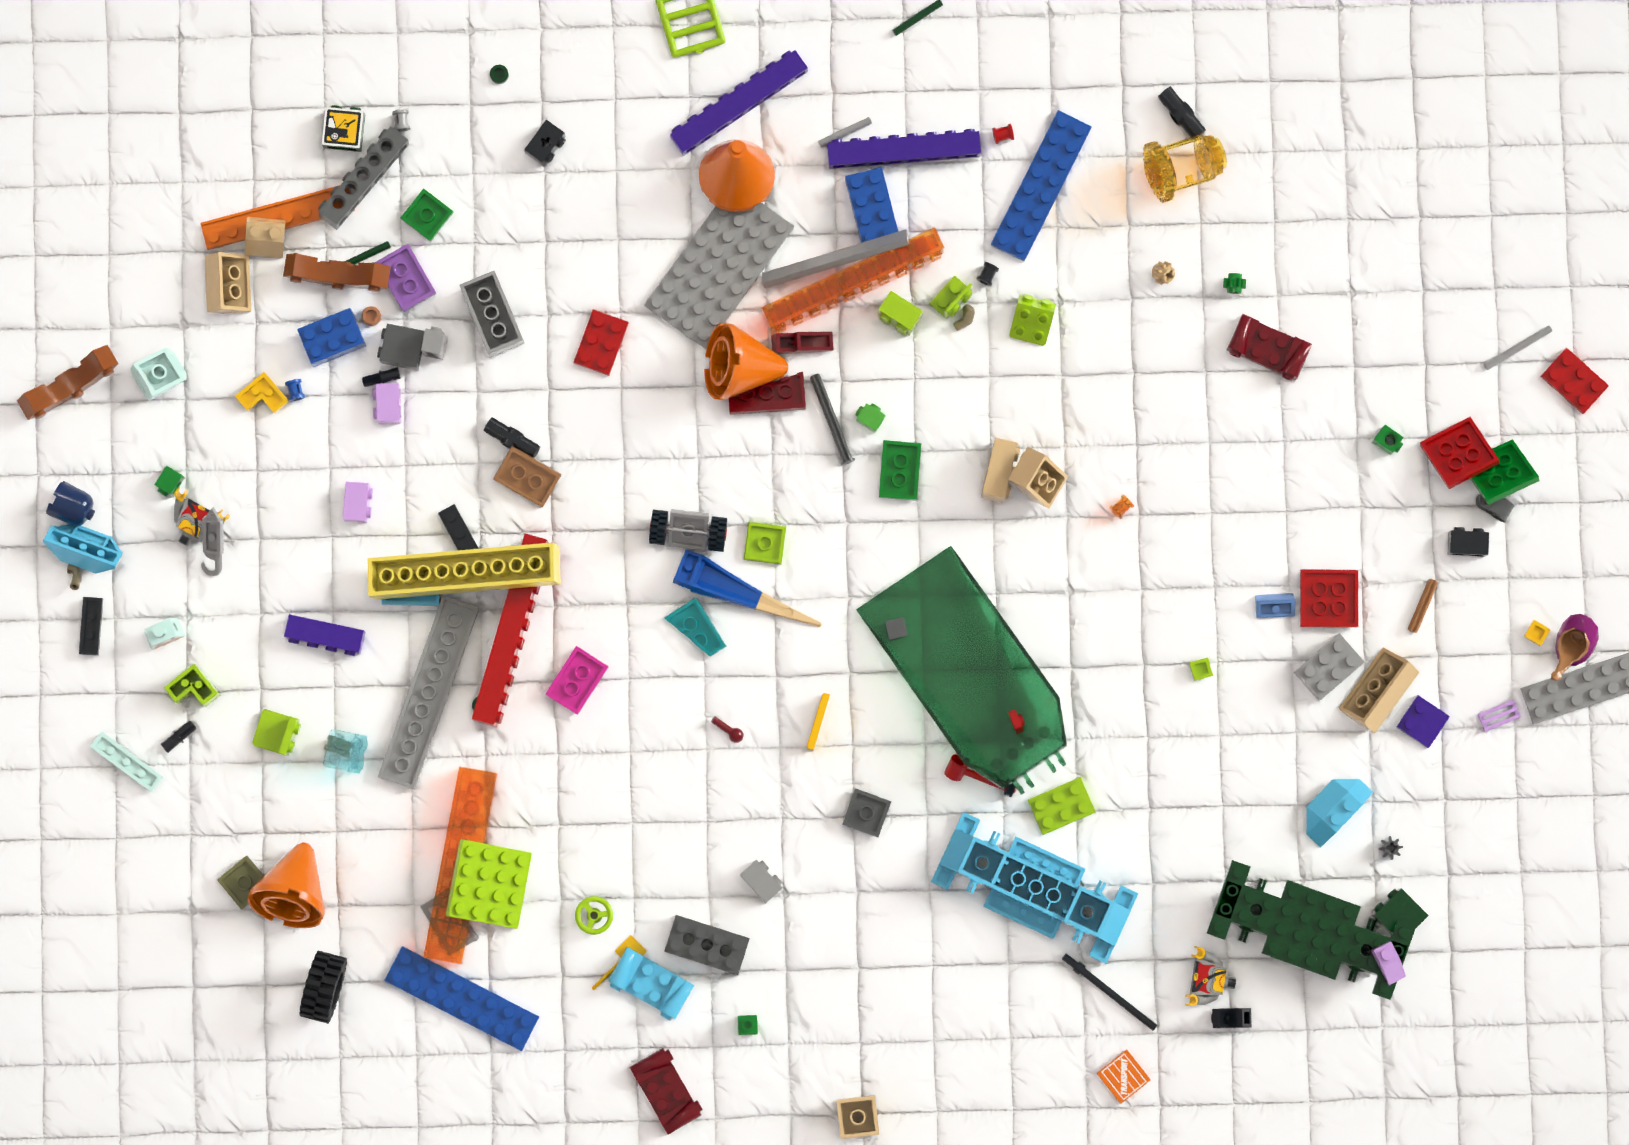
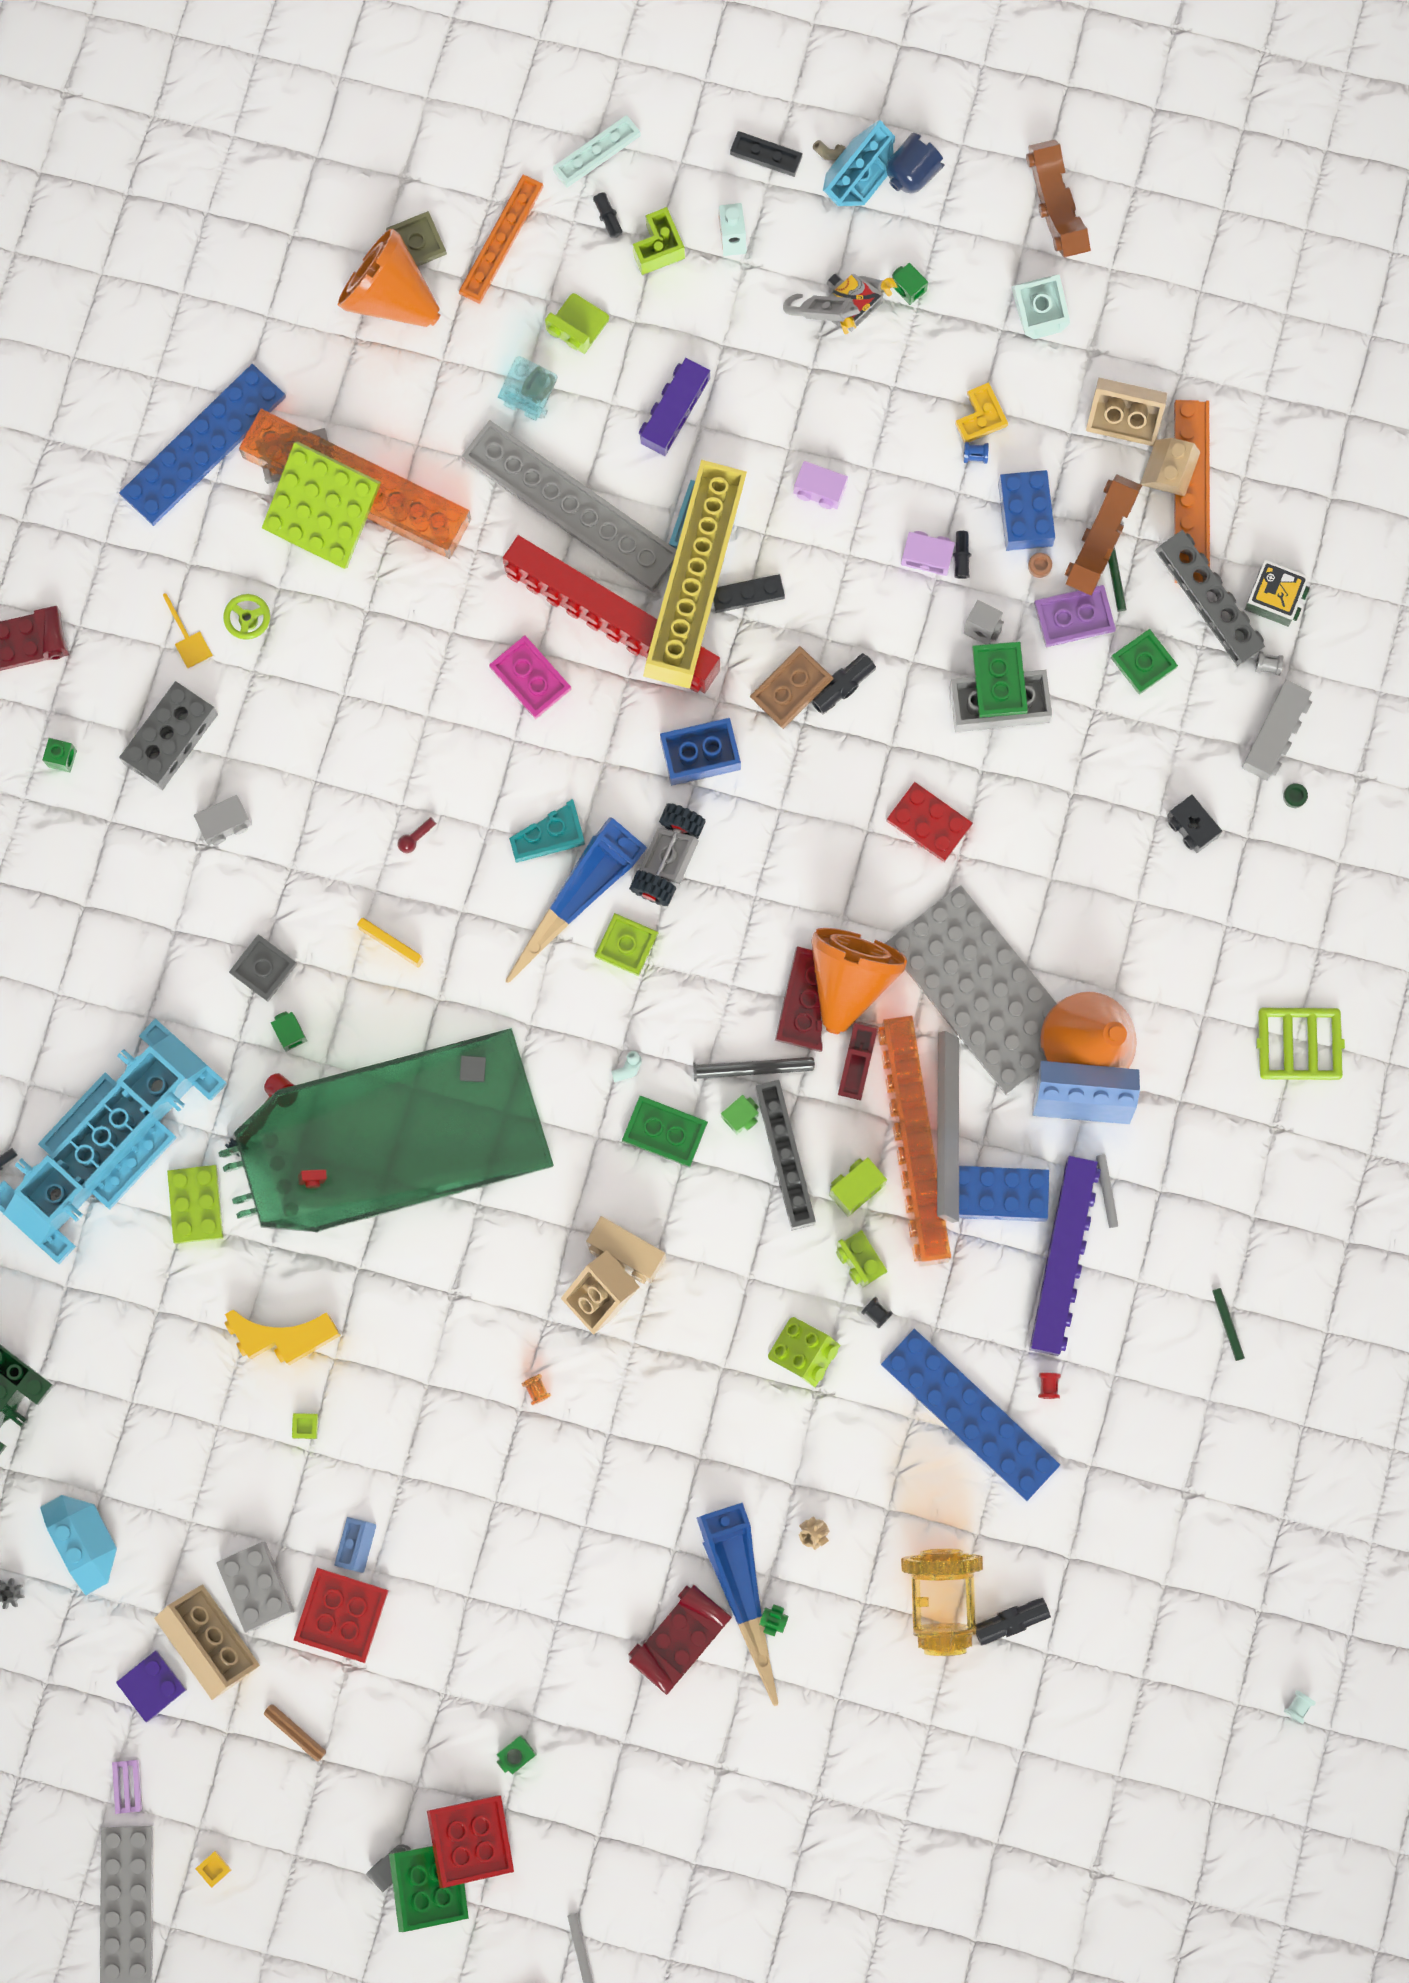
camera: 110 degrees right, 5 degrees down
(221, 816) = (501, 239): none -> orange tile
(323, 987) = (262, 285): black tyre -> none
(401, 347) = (991, 584): dark grey piece -> none
(452, 100) = (1277, 729): none -> light grey brick
(479, 316) = (999, 679): none -> green plate
(599, 530) = (700, 751): none -> blue brick
(651, 983) = (146, 660): medium azure piece -> none
(739, 102) = (1180, 1071): dark purple brick -> none
(778, 163) = (1086, 1092): none -> medium blue slope
(859, 511) = (630, 1067): none -> light aqua arm
(892, 374) = (785, 1155): none -> dark grey brick
(909, 777) = (288, 1030): none -> green brick
(967, 318) = (830, 1271): dark tan arm -> none
(1142, 698) = (291, 1342): none -> yellow arch
(1198, 327) = (731, 1553): none -> blue plate
(1468, 542) = (354, 1816): black brick -> none
(1574, 643) = (183, 1913): hat -> none

